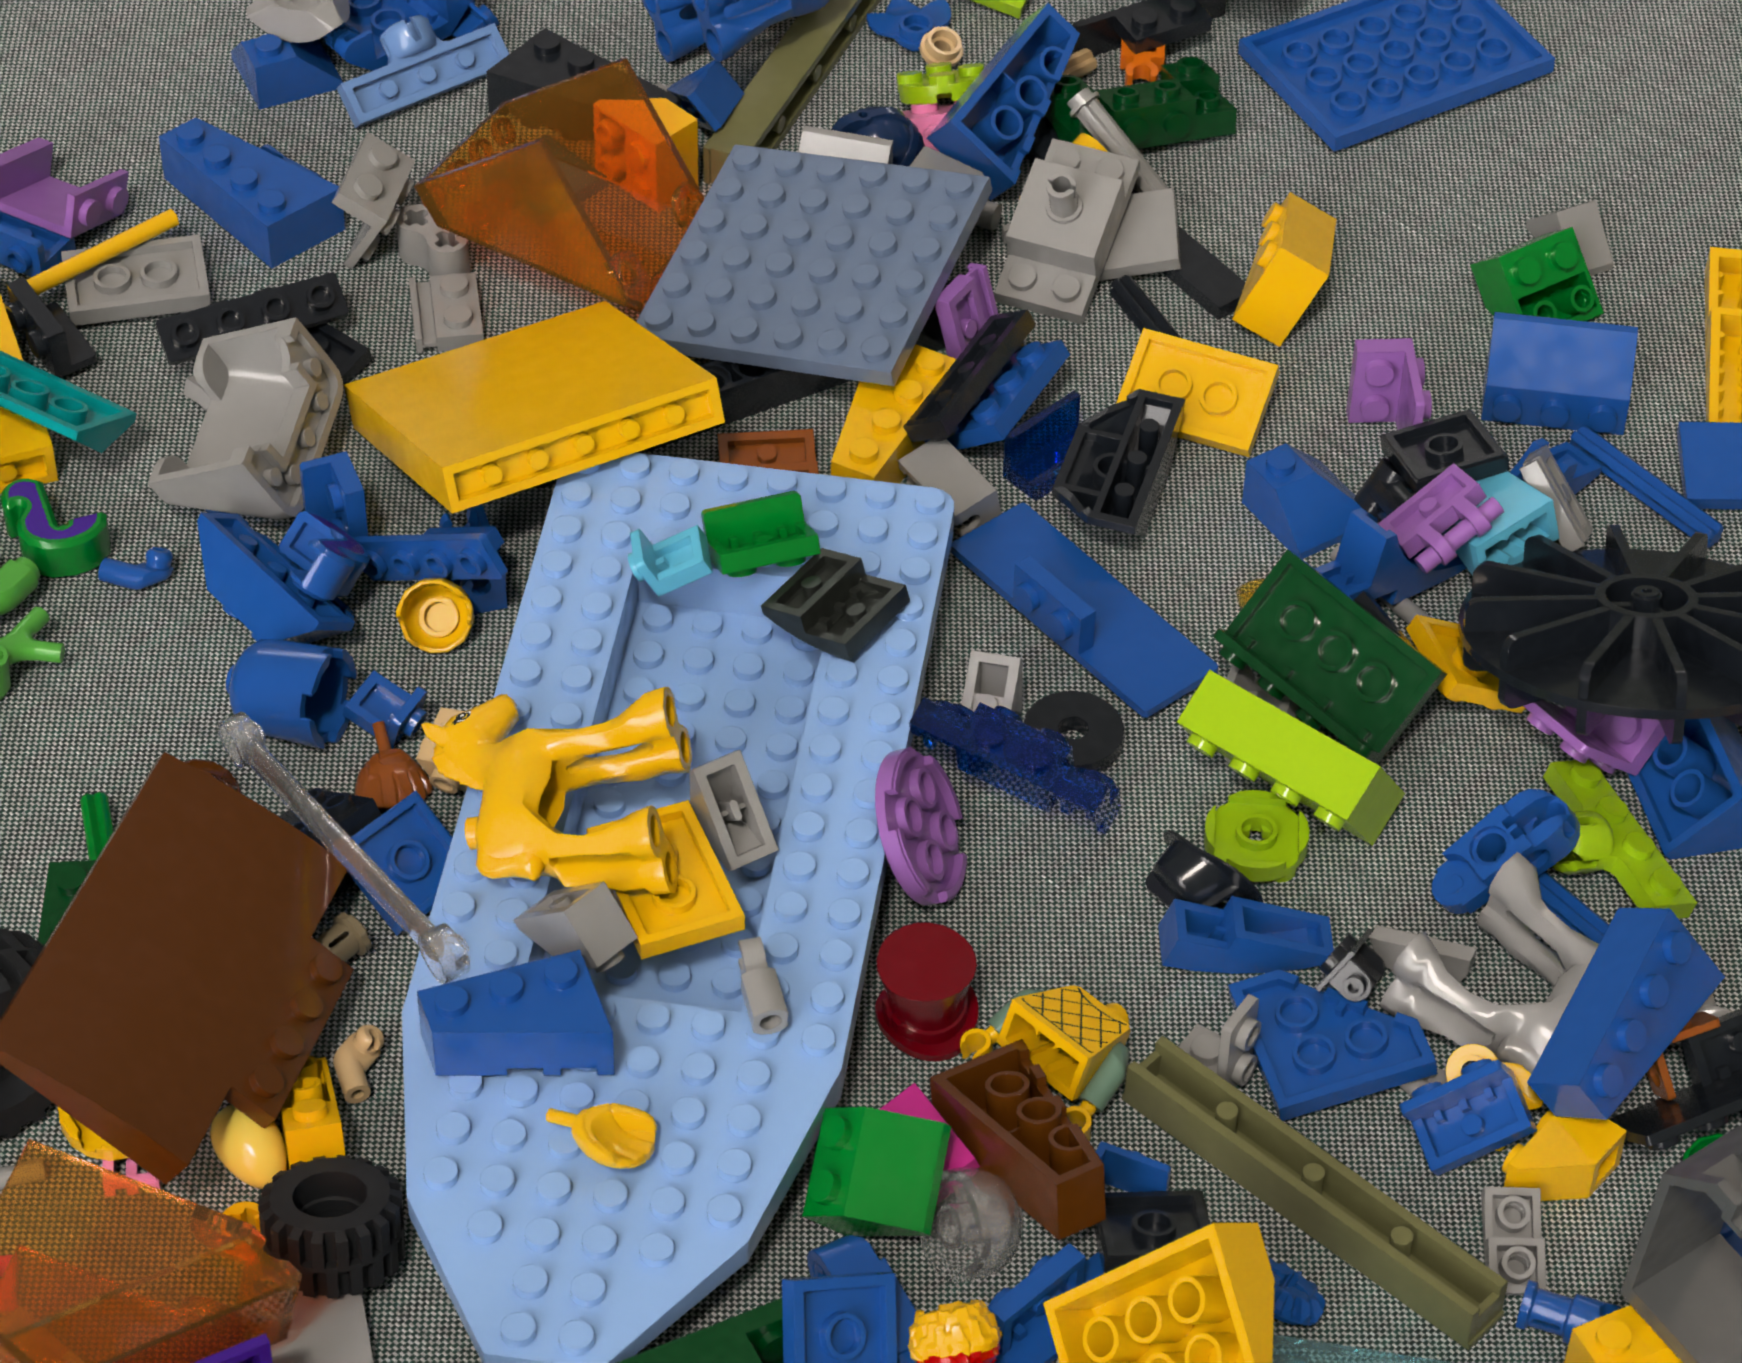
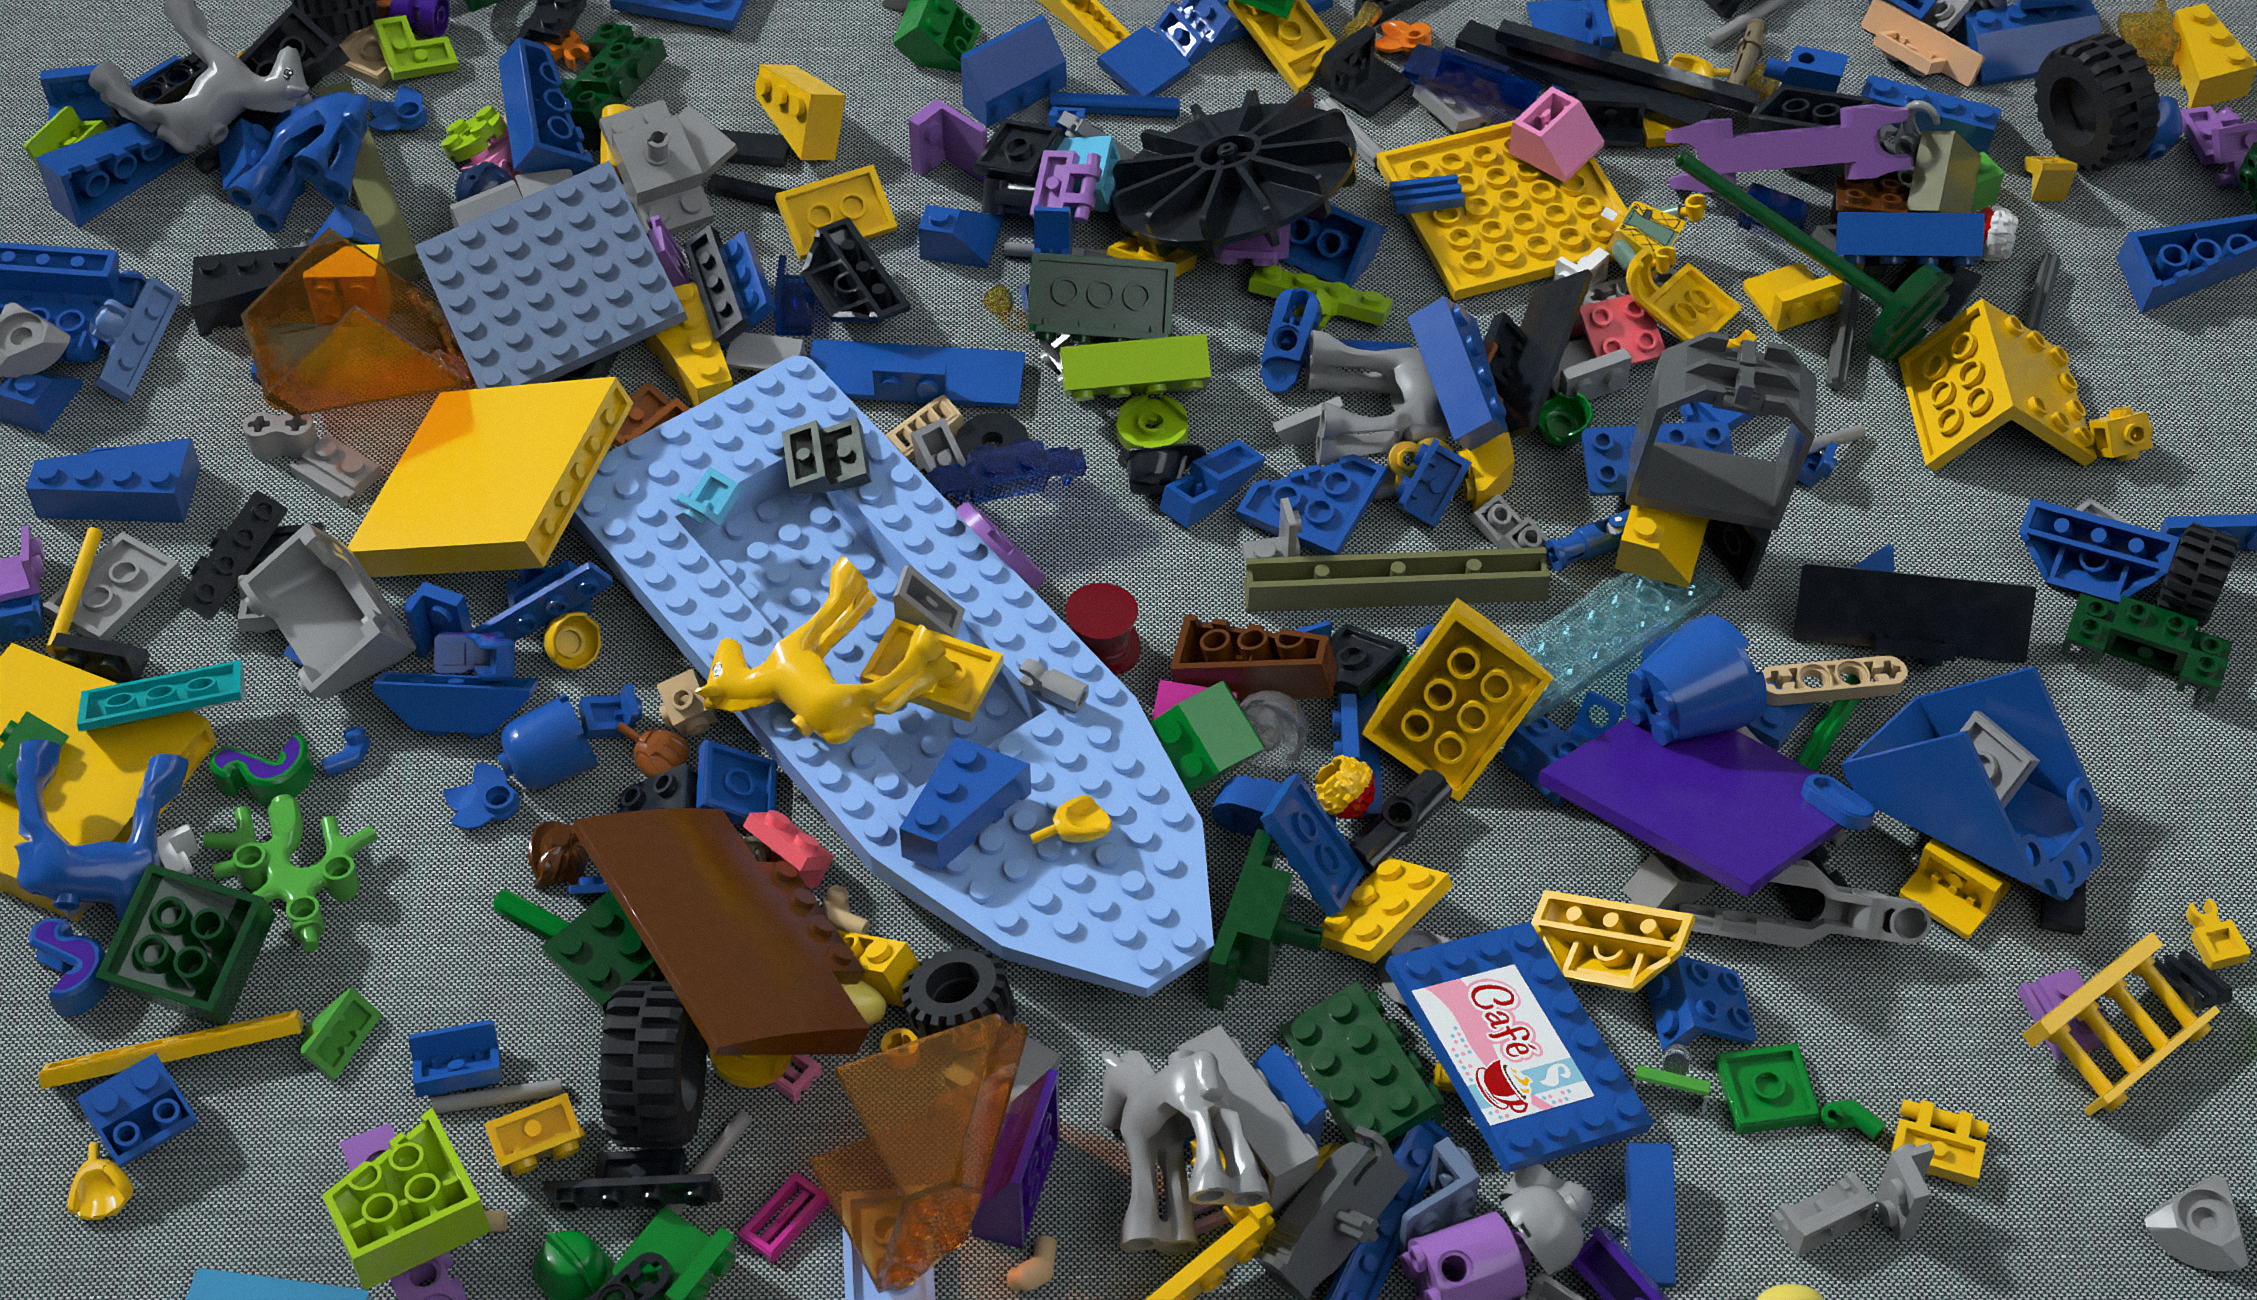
camera: 45 degrees left, 5 degrees up
(190, 701) = (478, 802): none -> blue plate
(370, 191) = (226, 430): light grey bracket -> none
(374, 955) = (791, 845): none -> coral bracket
(439, 945) = (865, 800): clear piece -> none
(580, 920) = (920, 729): light grey slope -> none
(759, 534) = (744, 447): green bracket -> none
(941, 45) = (439, 114): tan plate -> none
(1044, 665) = (930, 413): none -> tan slope
(1070, 1038) = (1198, 592): yellow torso -> none
(1107, 132) = (609, 95): light grey axle -> none
(1352, 968) = (1286, 453): black hinge -> none

